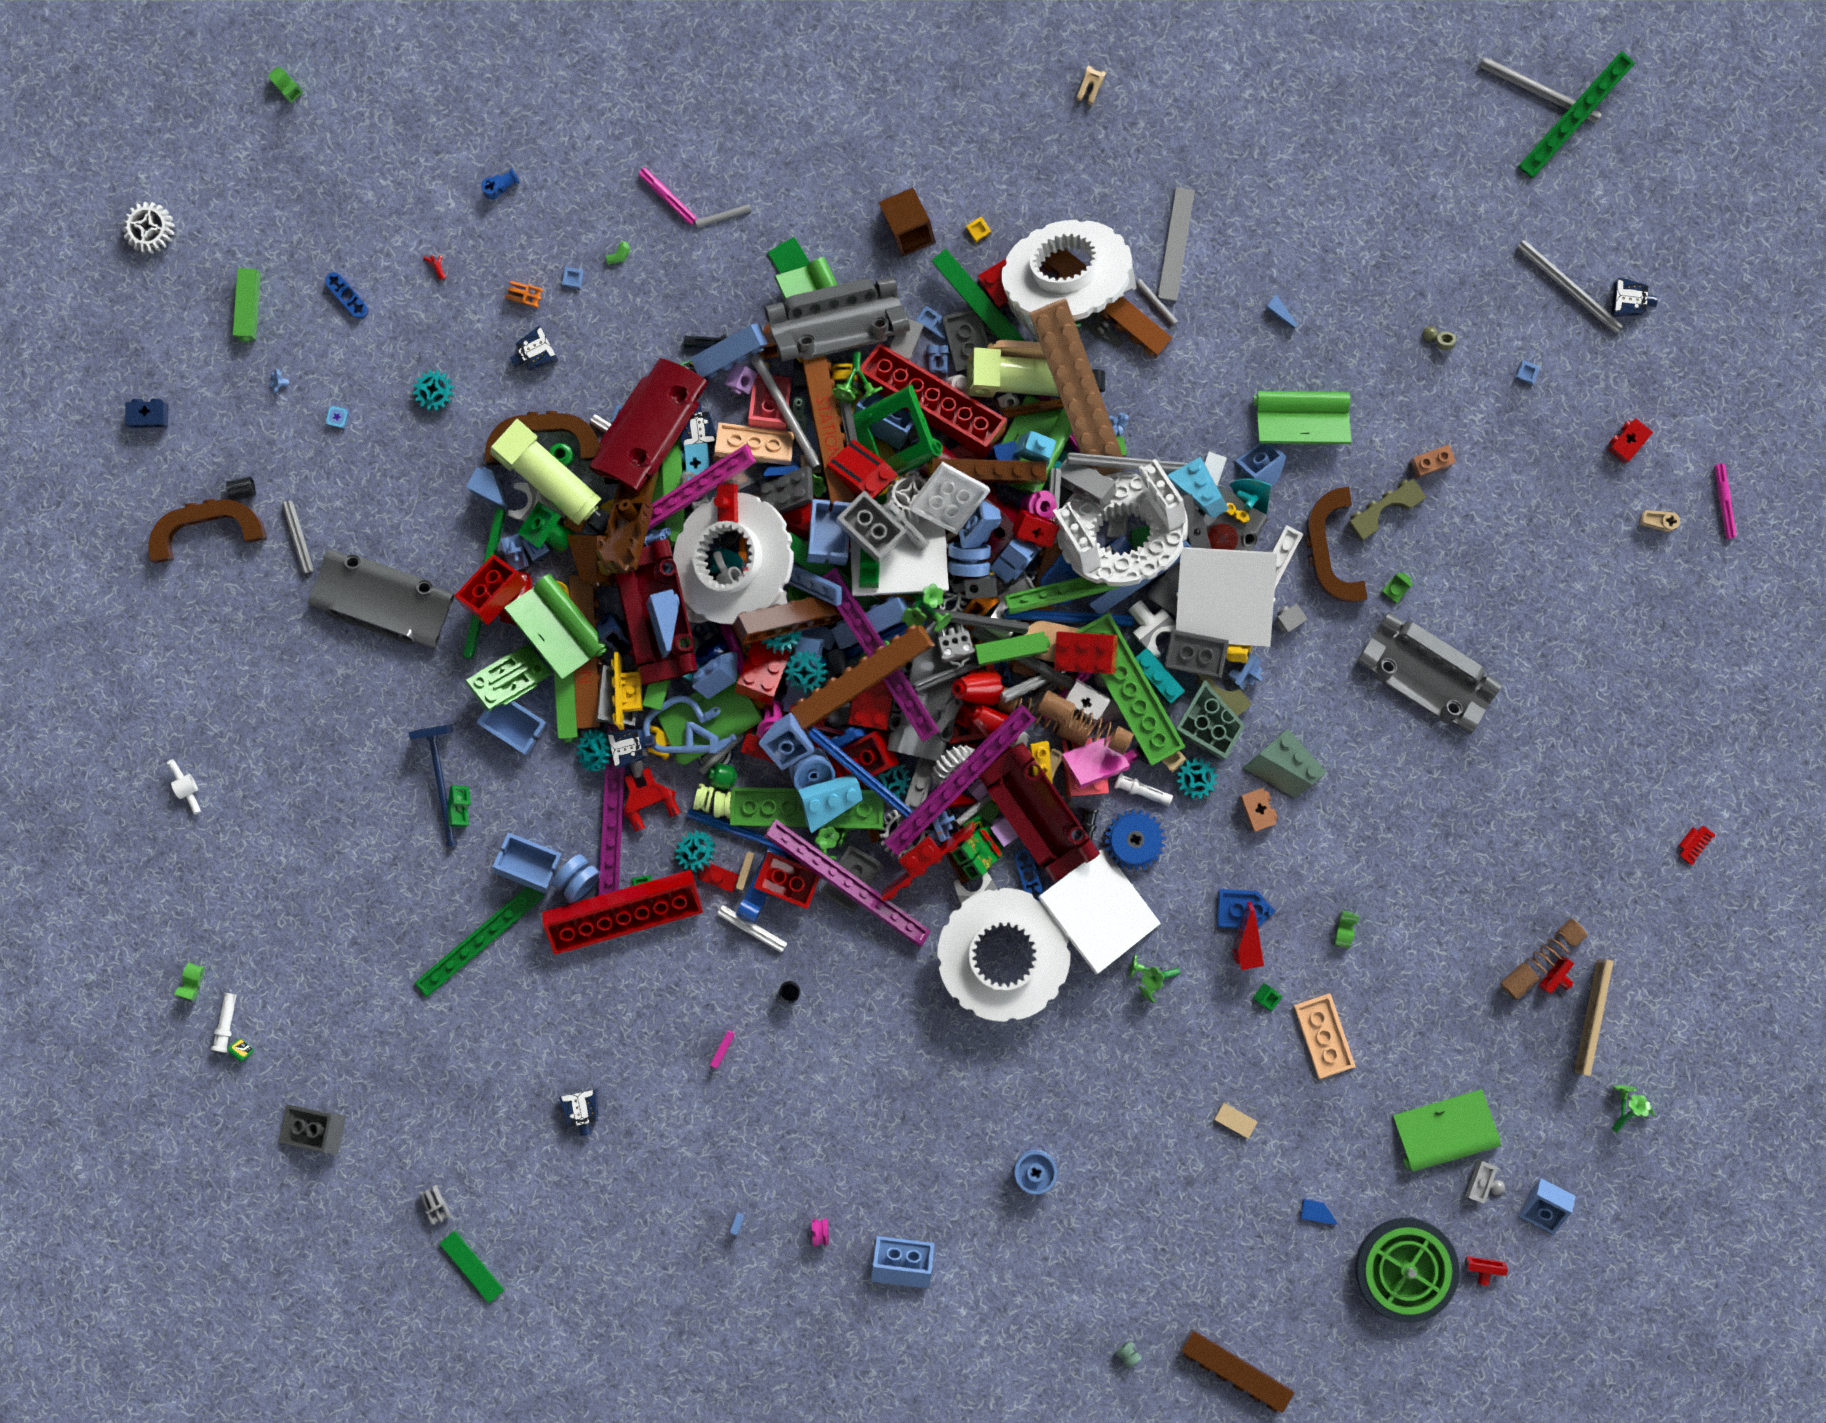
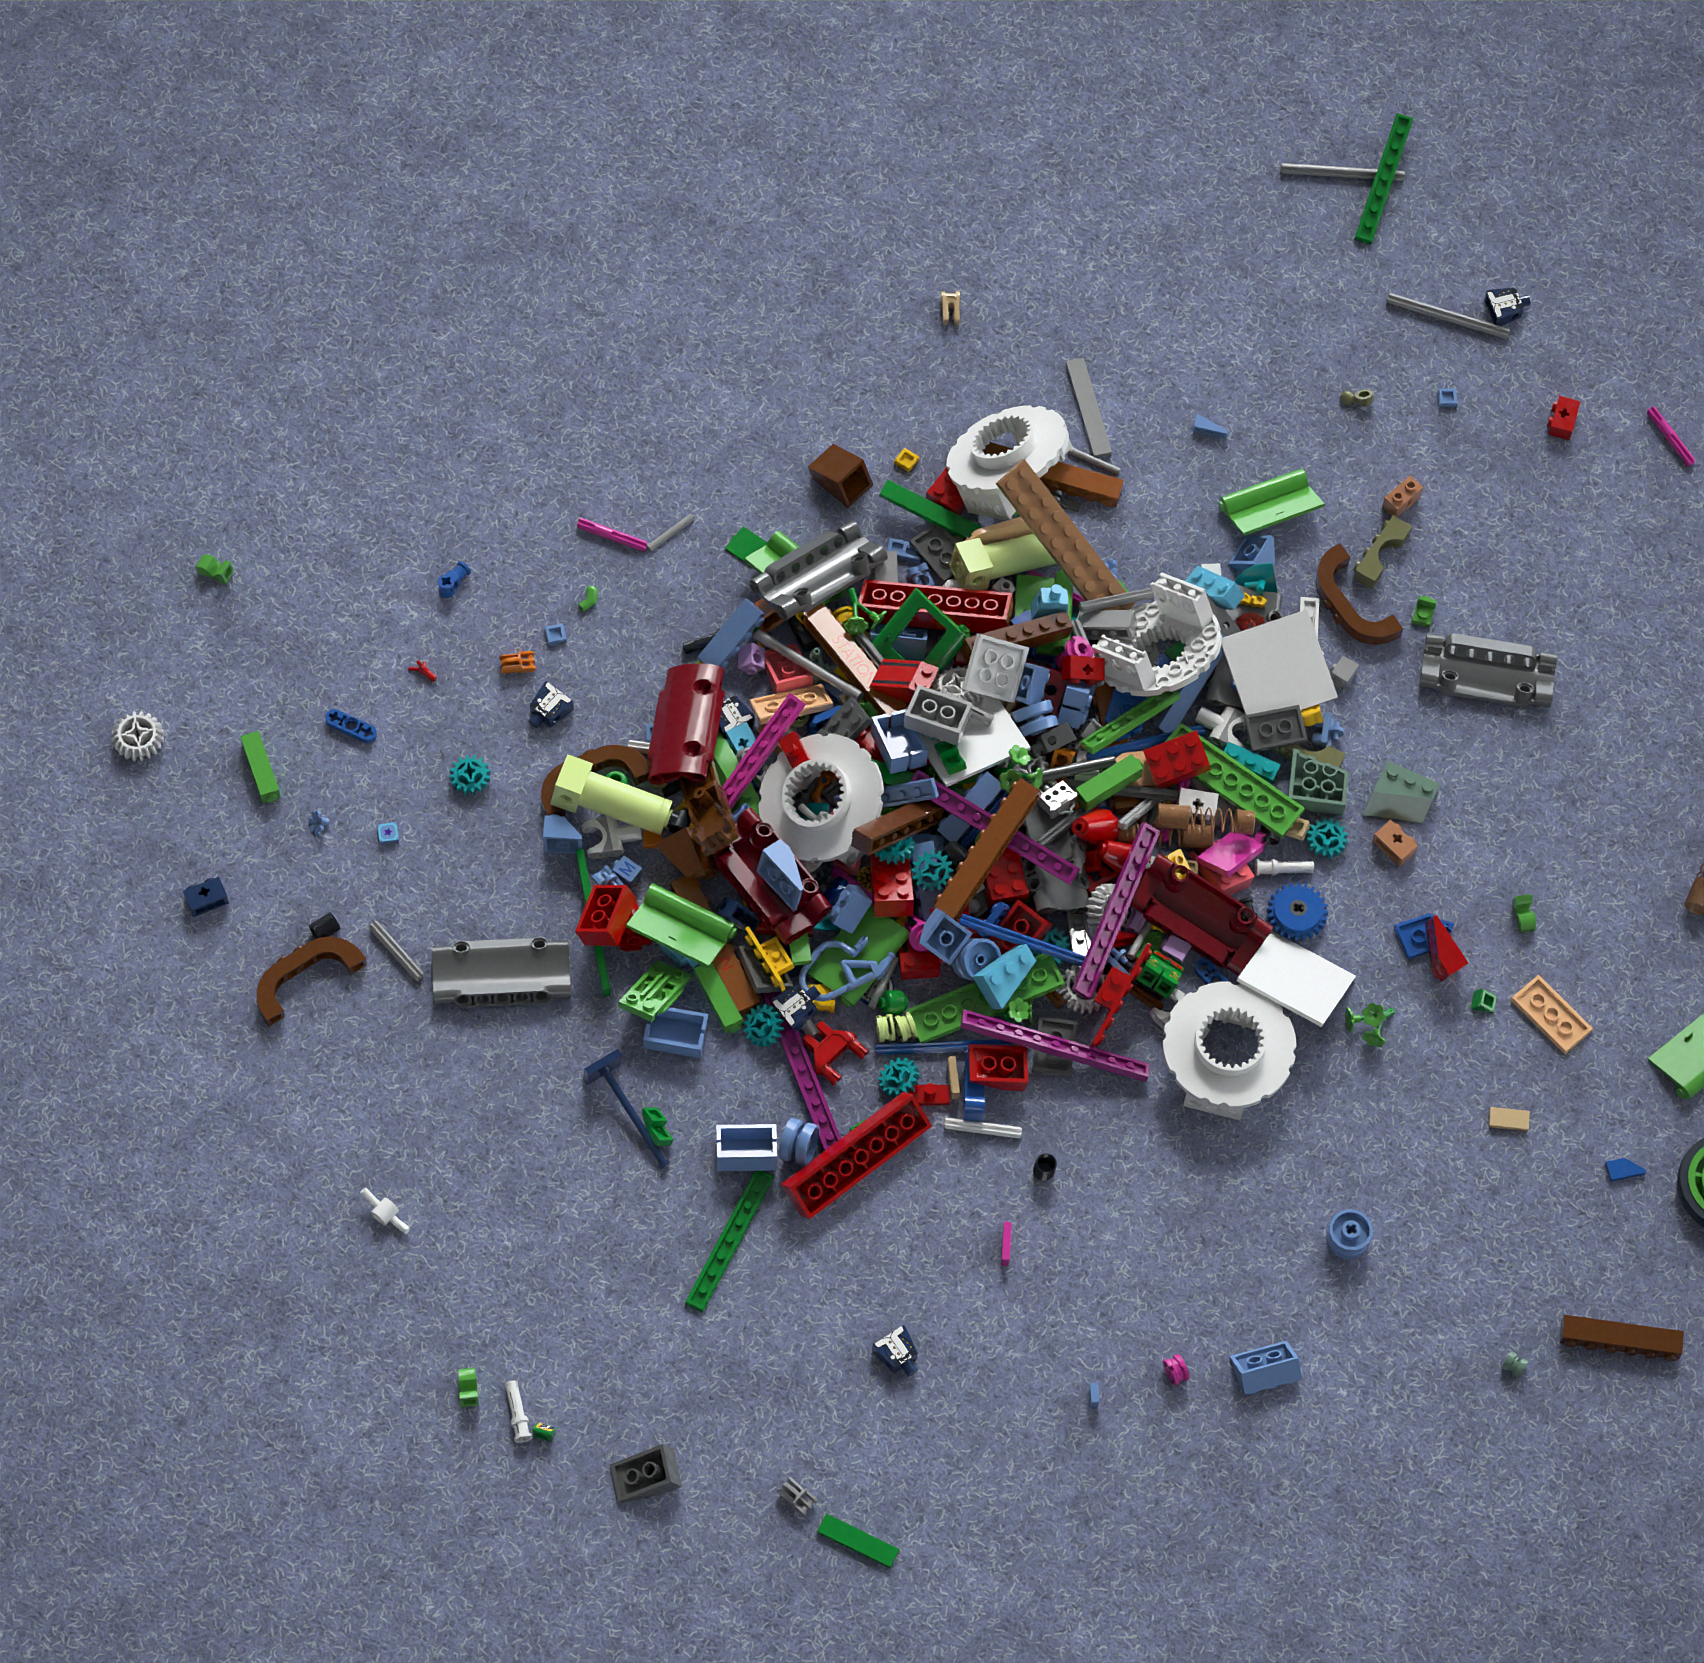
camera: 30 degrees left, 20 degrees down
(542, 527) = (628, 847): green plant -> none
(1038, 407) = (1033, 579): reddish brown axle -> none
(1658, 519) = (1623, 472): tan piece -> none

